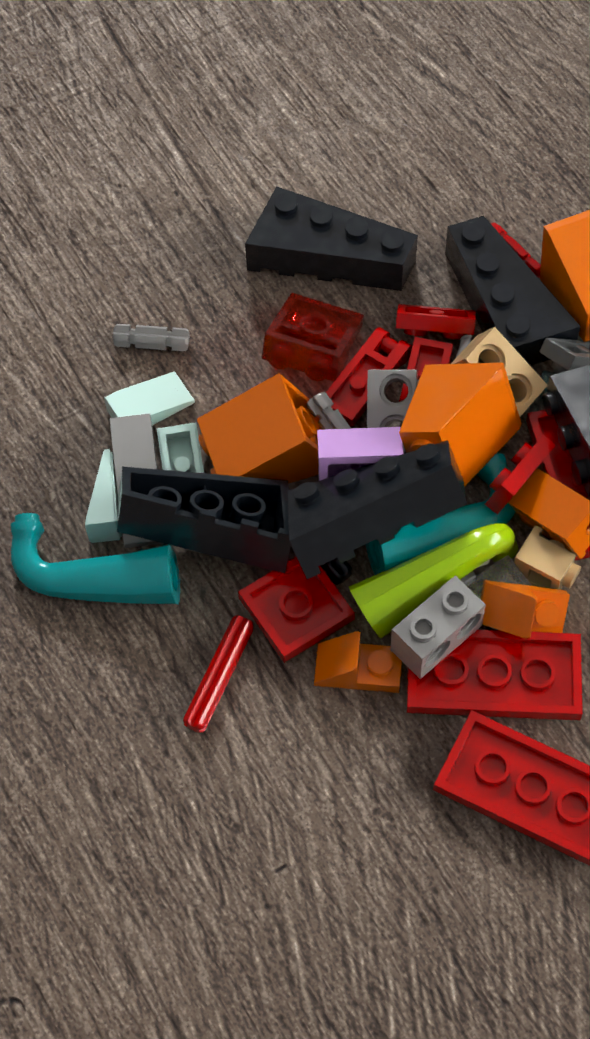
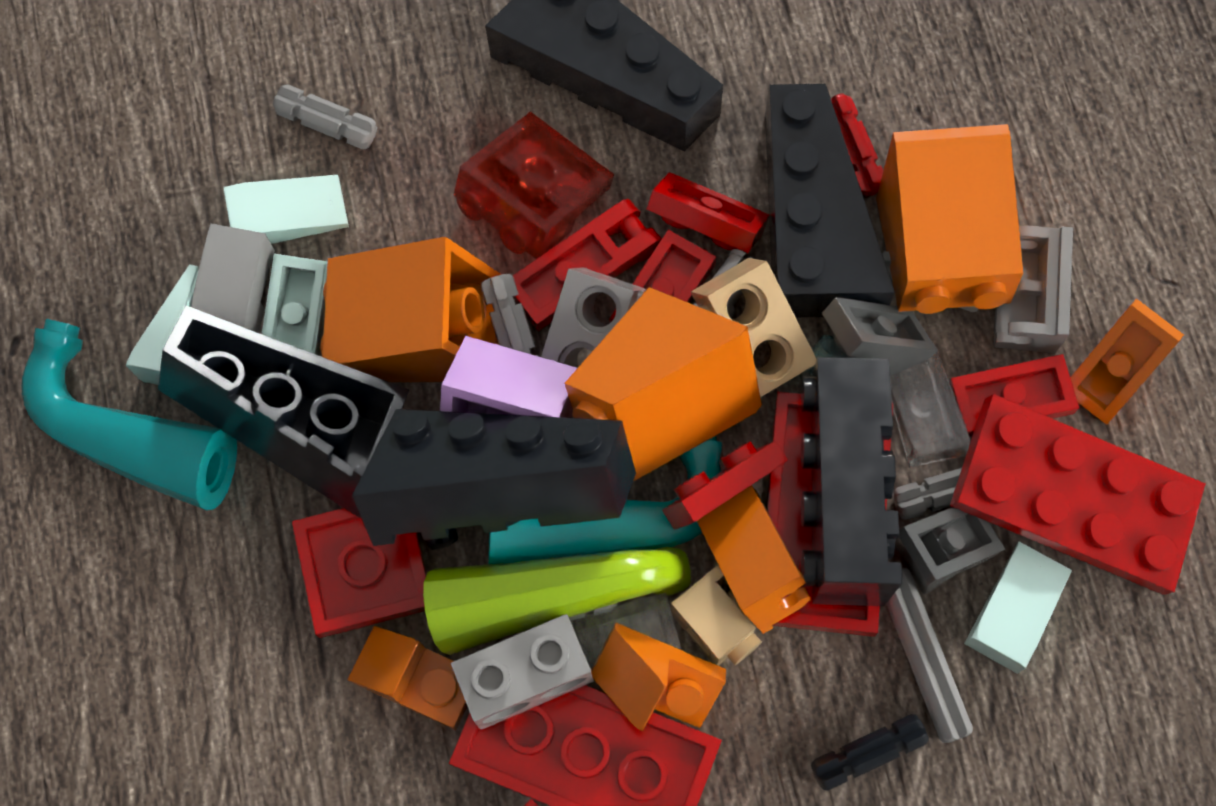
camera: 20 degrees right, 10 degrees up
(218, 674) = (228, 625): red axle -> none

